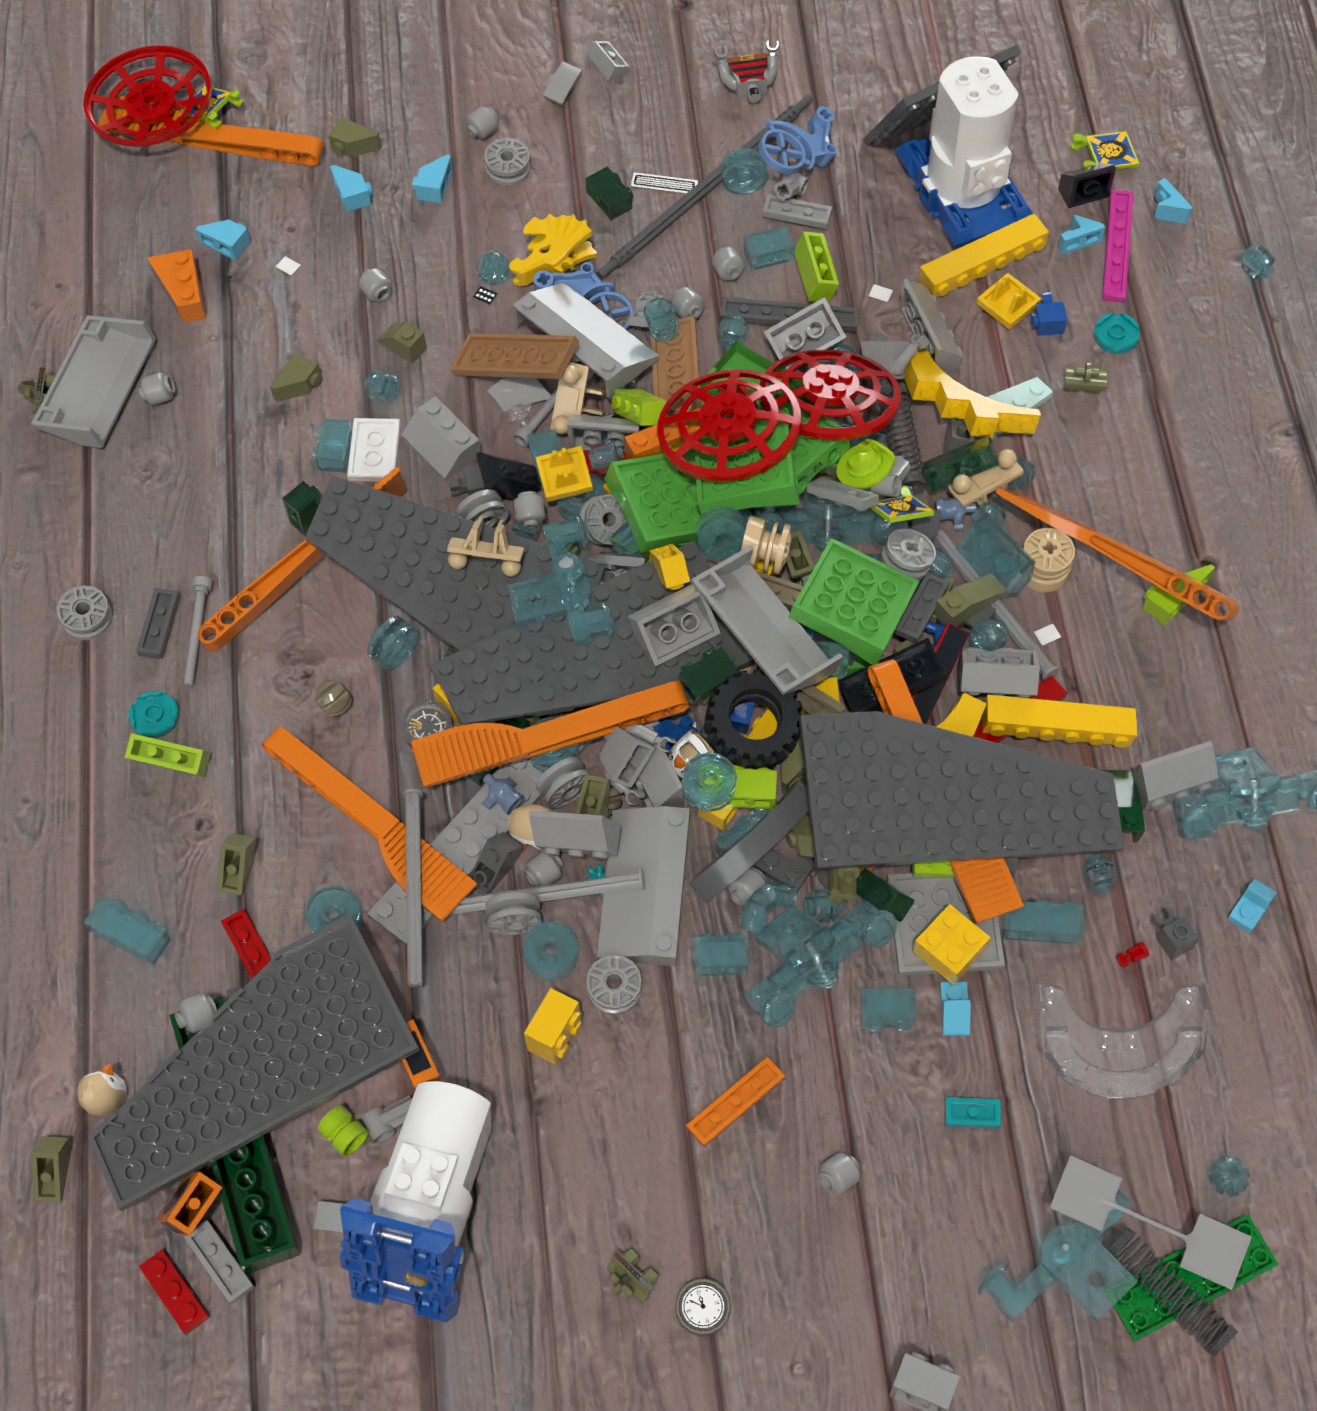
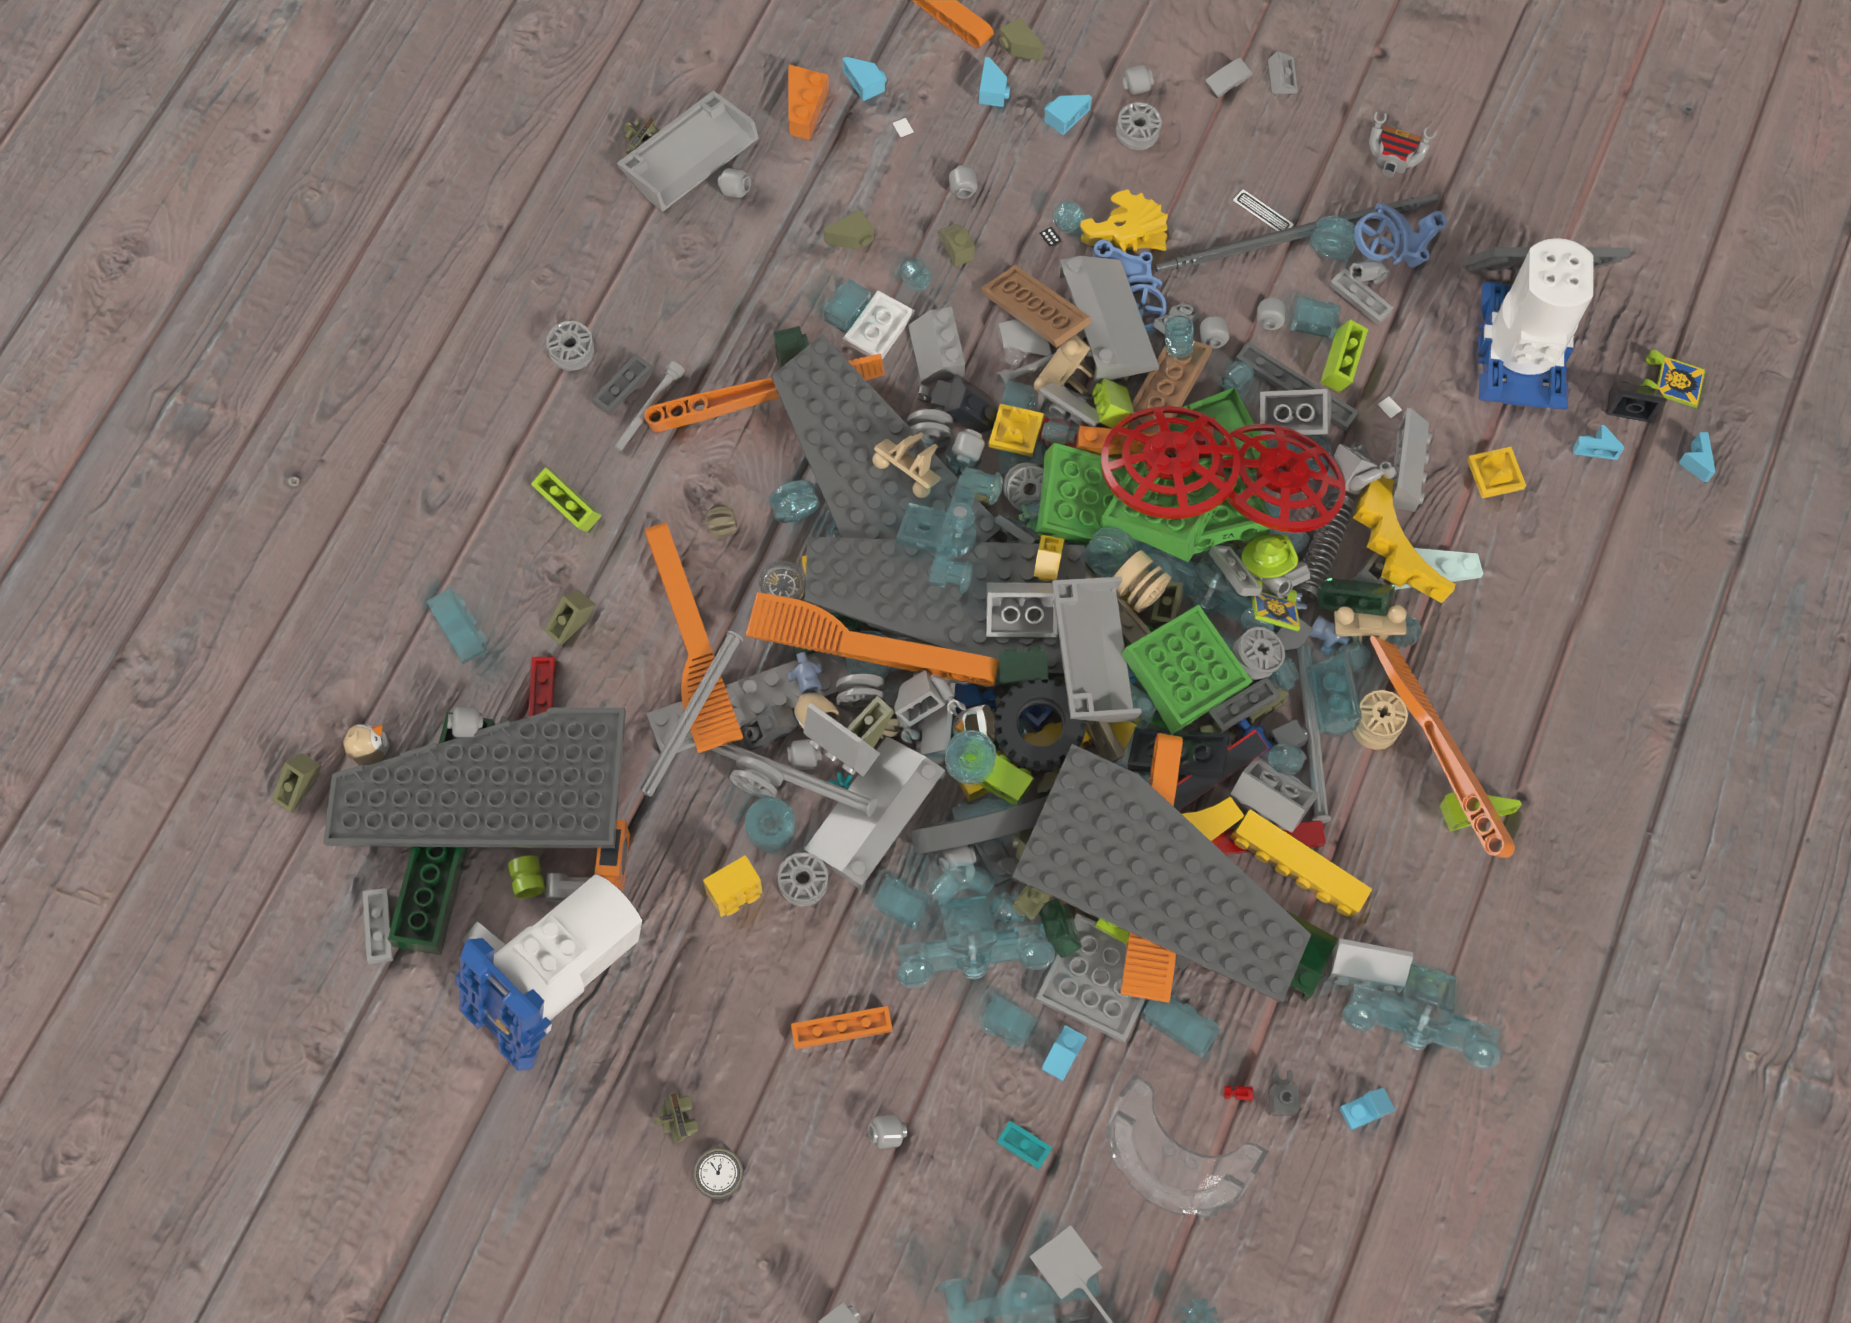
camera: 25 degrees right, 5 degrees up
(153, 714) = (577, 459): teal tile -> none
(173, 1292) = (333, 929): red plate -> none
(188, 1204) = (377, 868): orange brick -> none
(331, 900) = (621, 687): clear light blue wheel -> none
(609, 193) = (1208, 198): clear green brick -> none
(951, 944) = (1089, 1000): yellow brick -> none
(968, 600) = (1287, 719): olive slope -> none
(984, 256) = (1500, 420): yellow brick -> none
(1047, 634) = (1342, 783): white sticker -> none
(1049, 316) = (1522, 505): blue brick -> none
(1085, 377) = (1518, 577): olive hips -> none
(1100, 874) = (1253, 1011): clear light blue head -> none
(1116, 333) = (1575, 550): teal tile -> none
(1117, 246) = (1628, 471): dark pink tile -> none
(1257, 262) = (1744, 552): clear light blue head -> none

